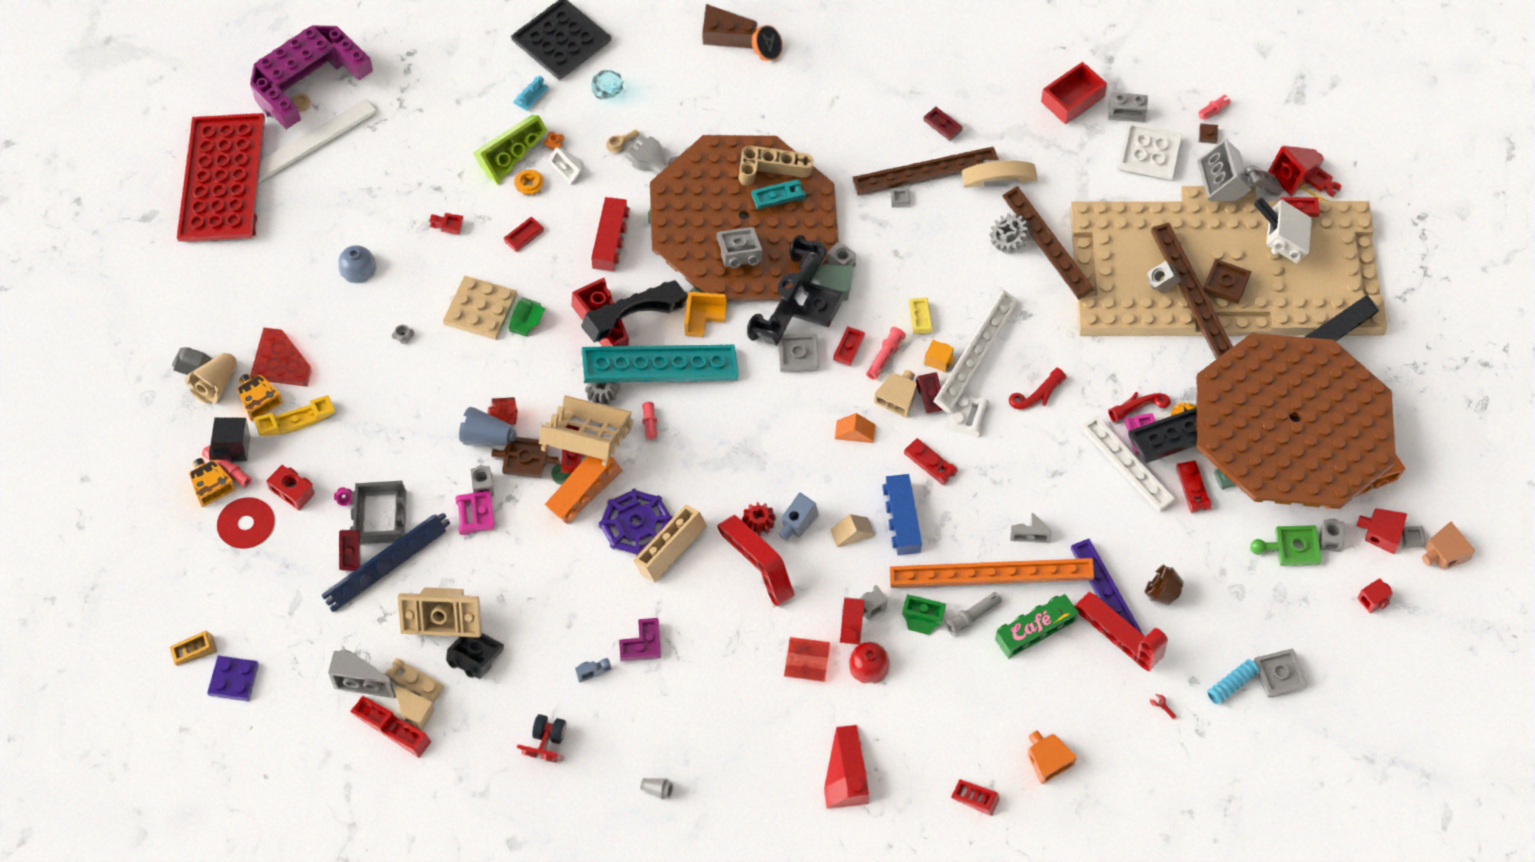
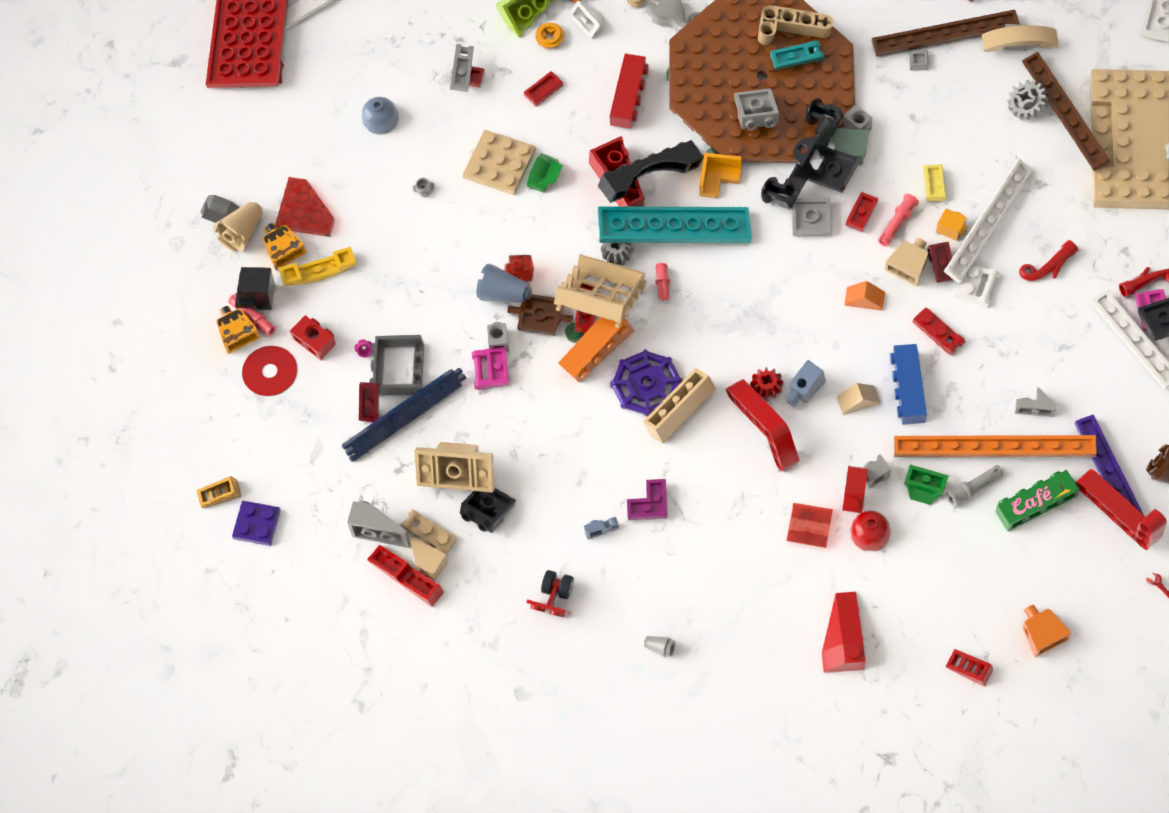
camera: 10 degrees right, 5 degrees up
(440, 215) = (461, 68): none -> light grey plate

